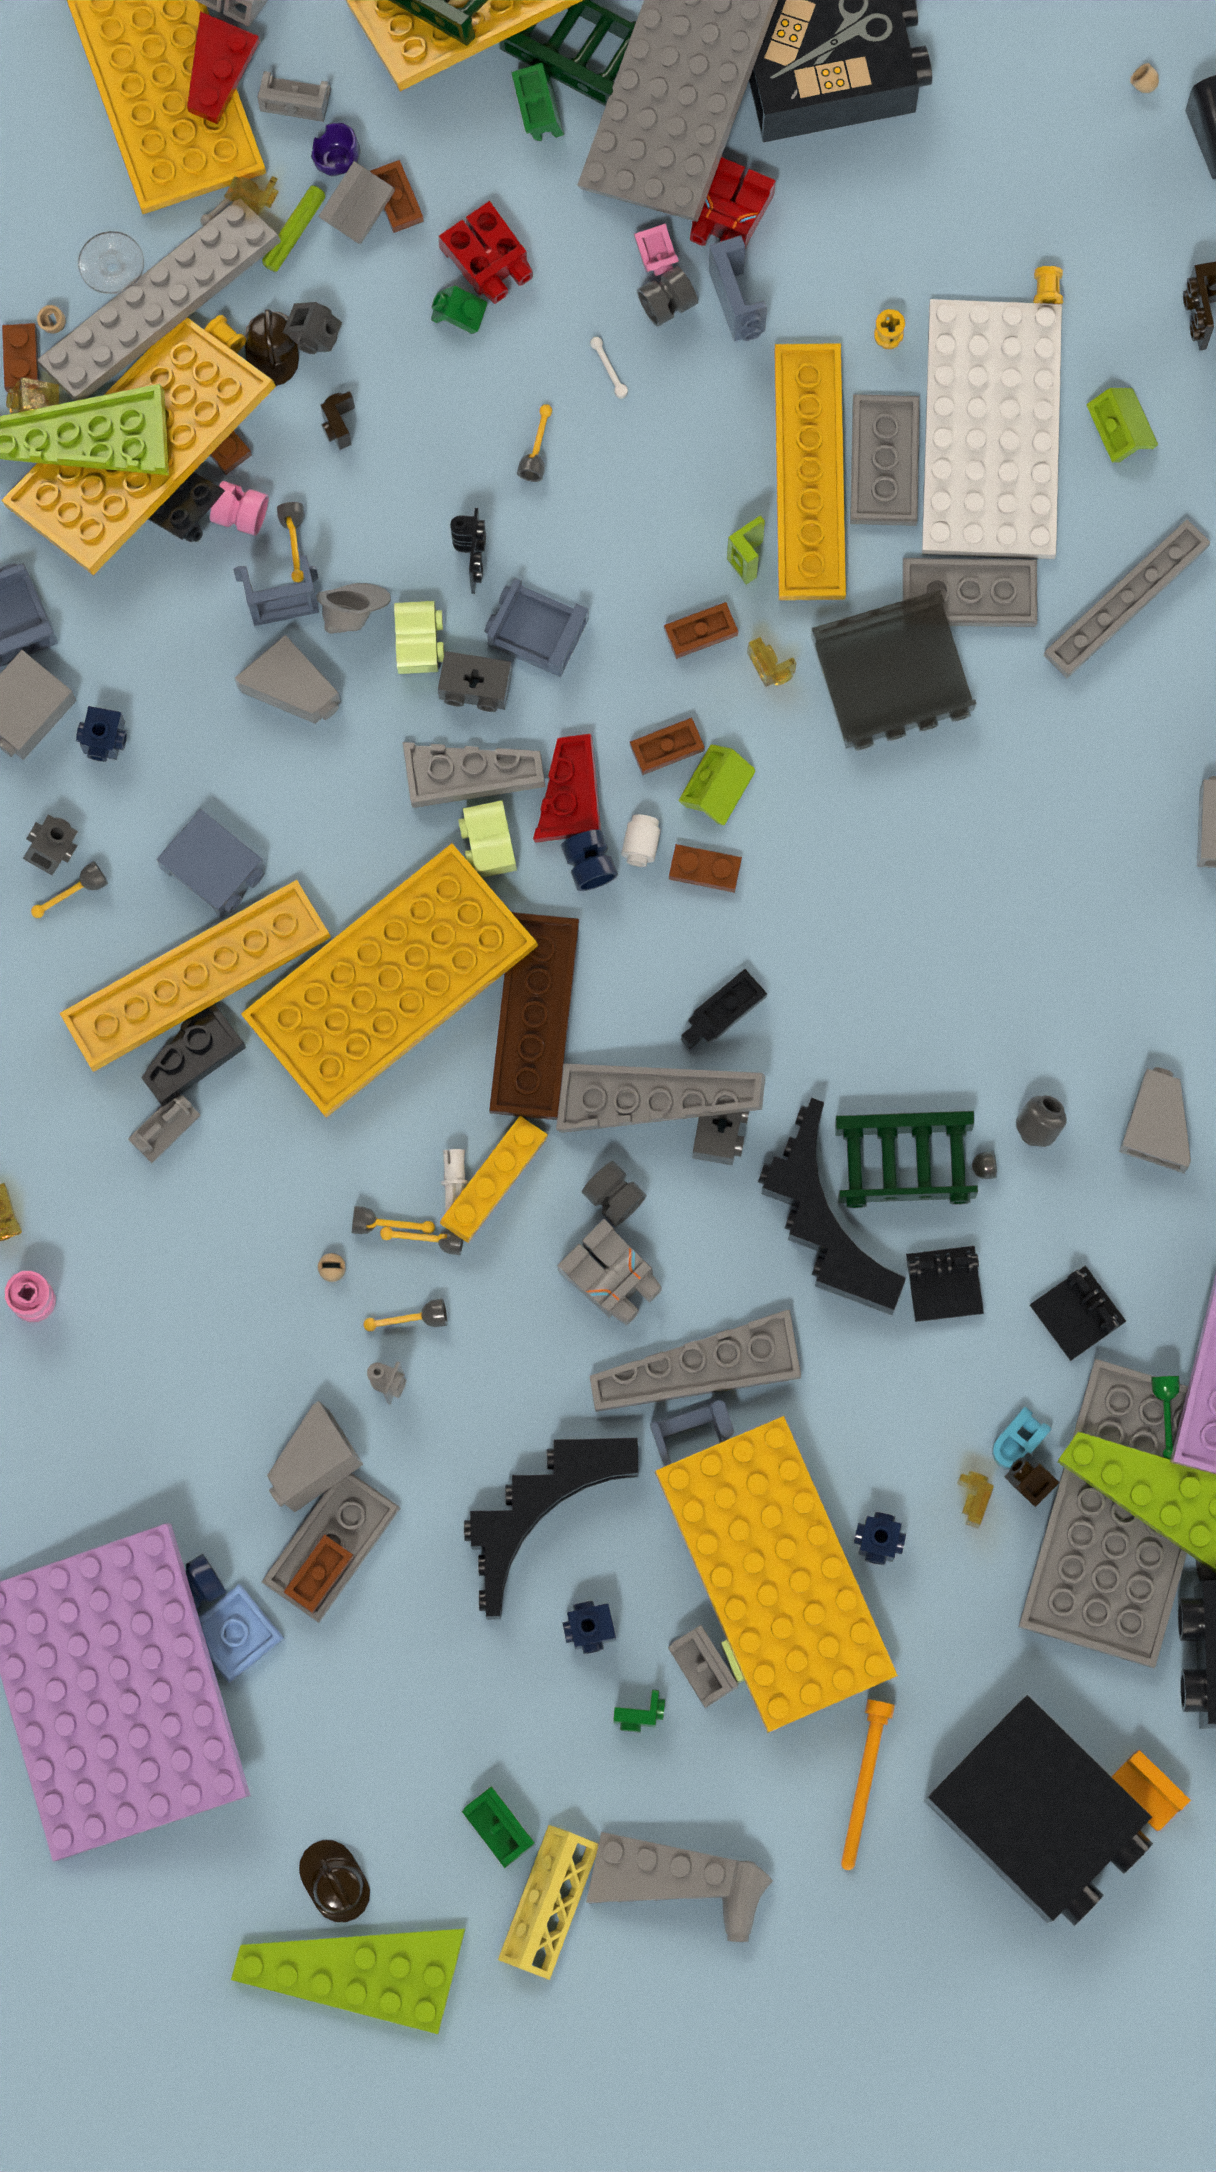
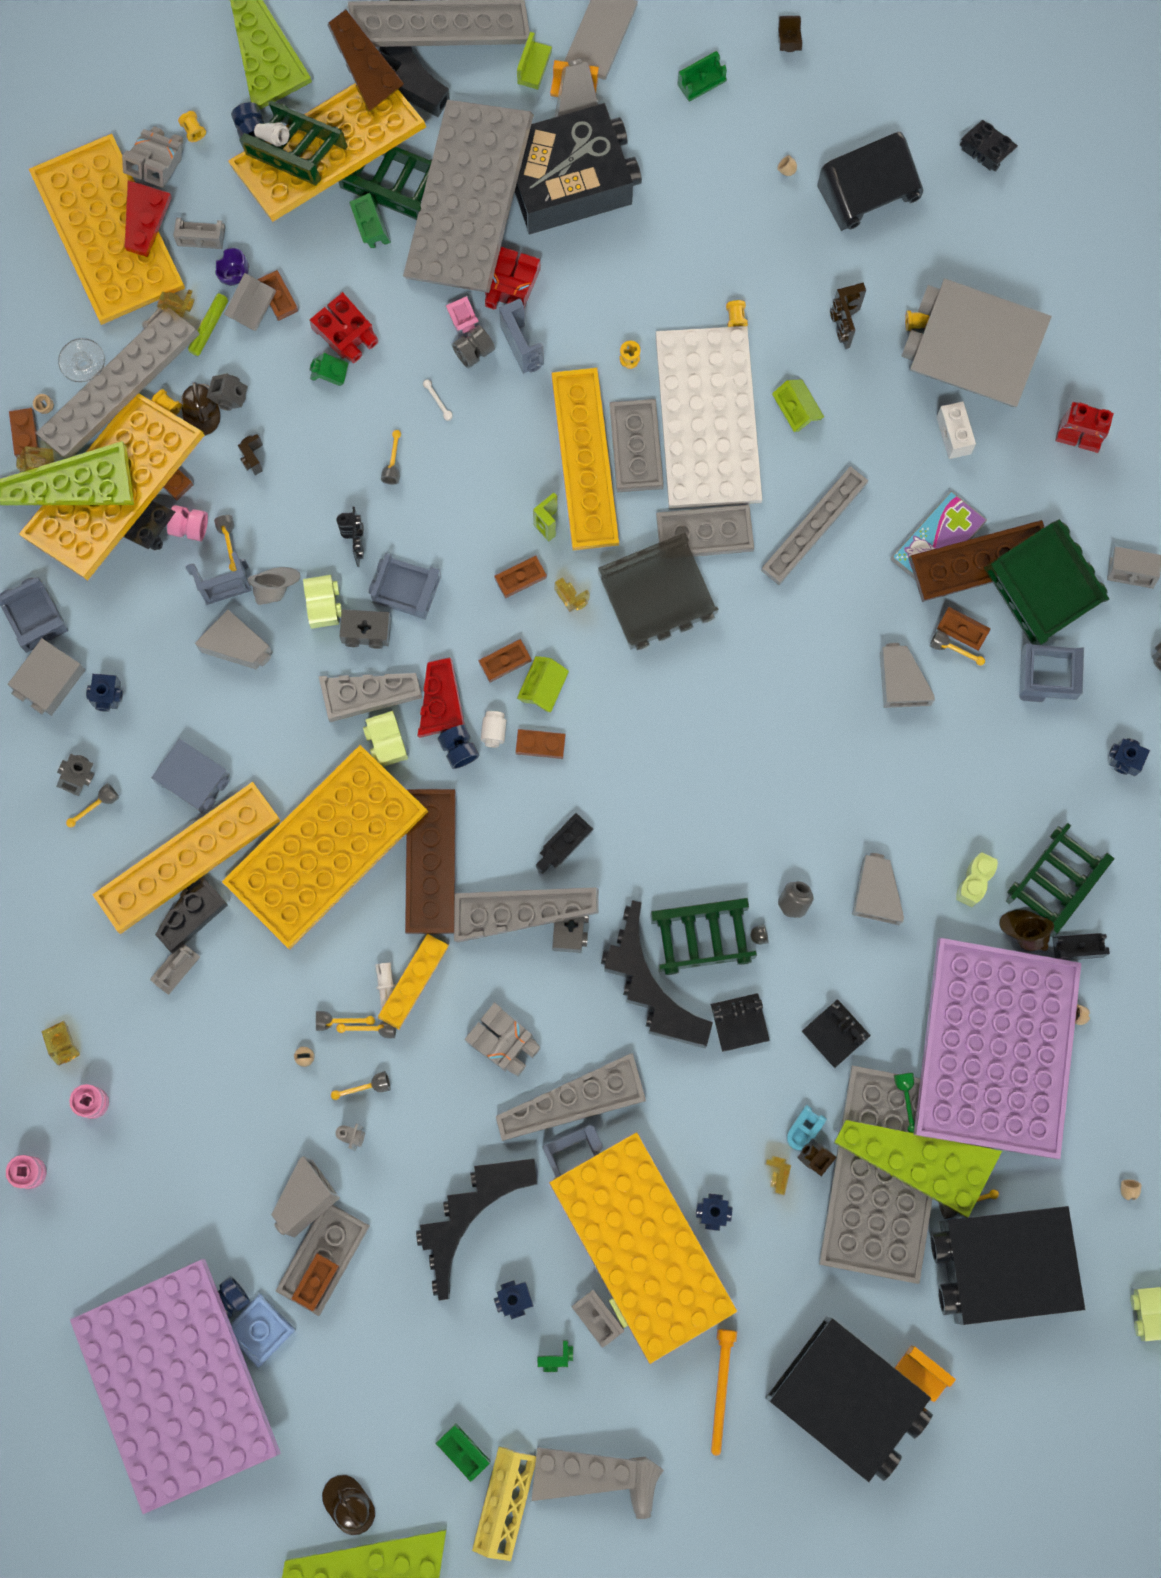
camera: 10 degrees left, 0 degrees up
(614, 1193) = (499, 983): dark grey wheel -> none

